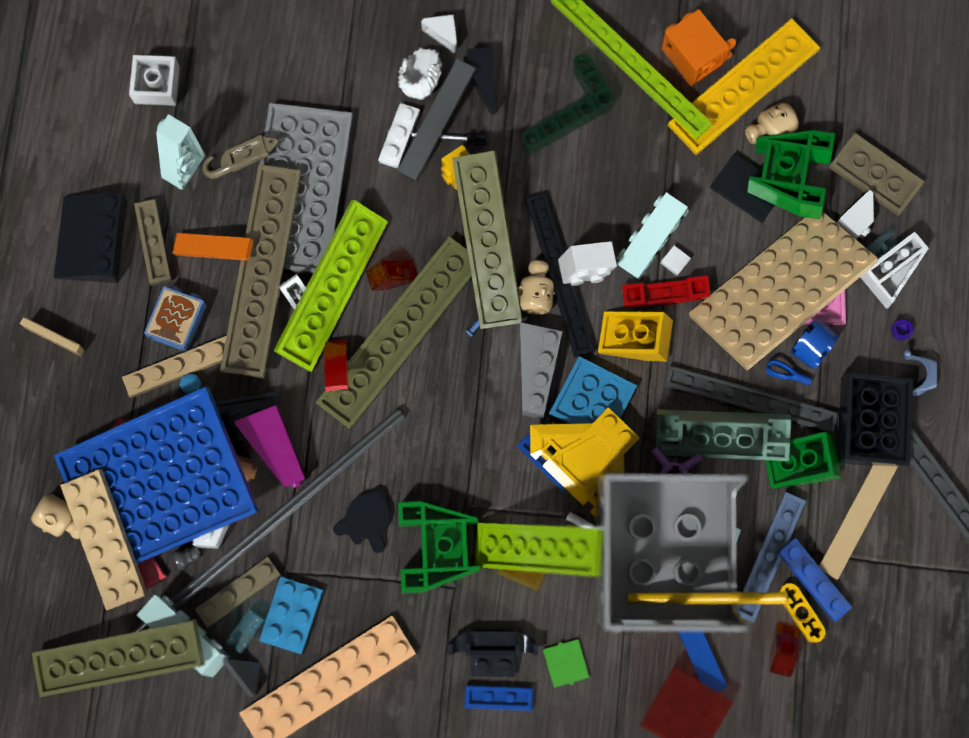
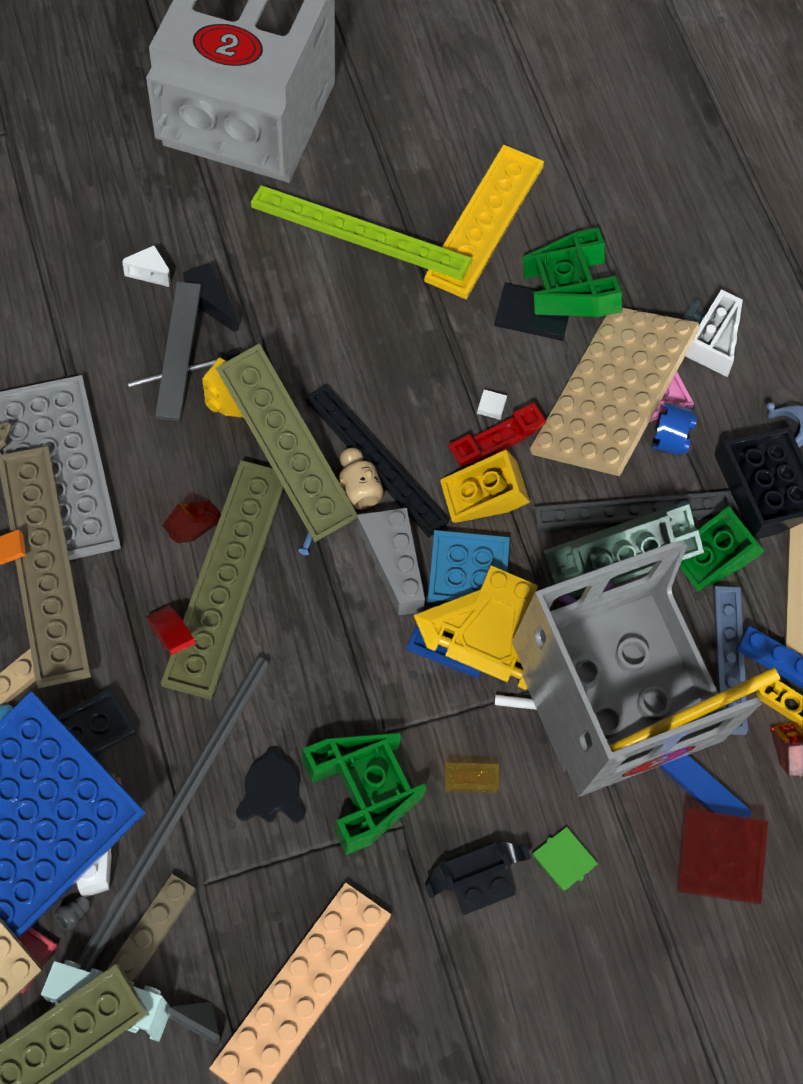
camera: 30 degrees left, 15 degrees down
(248, 627) = (180, 963): clear light blue hinge -> none
(273, 443) = (129, 740): magenta slope -> none
(291, 615) = (226, 931): dark azure plate -> none
(293, 290) = (95, 578): white slope -> none
(331, 286) = (129, 556): lime plate -> none
(399, 135) = (143, 383): white plate -> none
(420, 73) = (142, 313): white piece -> none
(498, 697) = (506, 927): blue tile -> none
(539, 548) = (488, 724): lime plate -> none
(573, 111) = (339, 278): clear green beam -> none
(587, 263) = (402, 431): white brick -> none
(652, 235) = (459, 384): light aqua wedge -> none
(696, 47) = (421, 196): orange container -> none
(773, 121) = (530, 238): tan piece -> none
(794, 375) = (664, 471): blue piece -> none
(859, 217) = (659, 297): white slope -> none
(875, 171) = (655, 257): dark tan plate -> none
(902, 329) = (752, 390): dark purple tile -> none

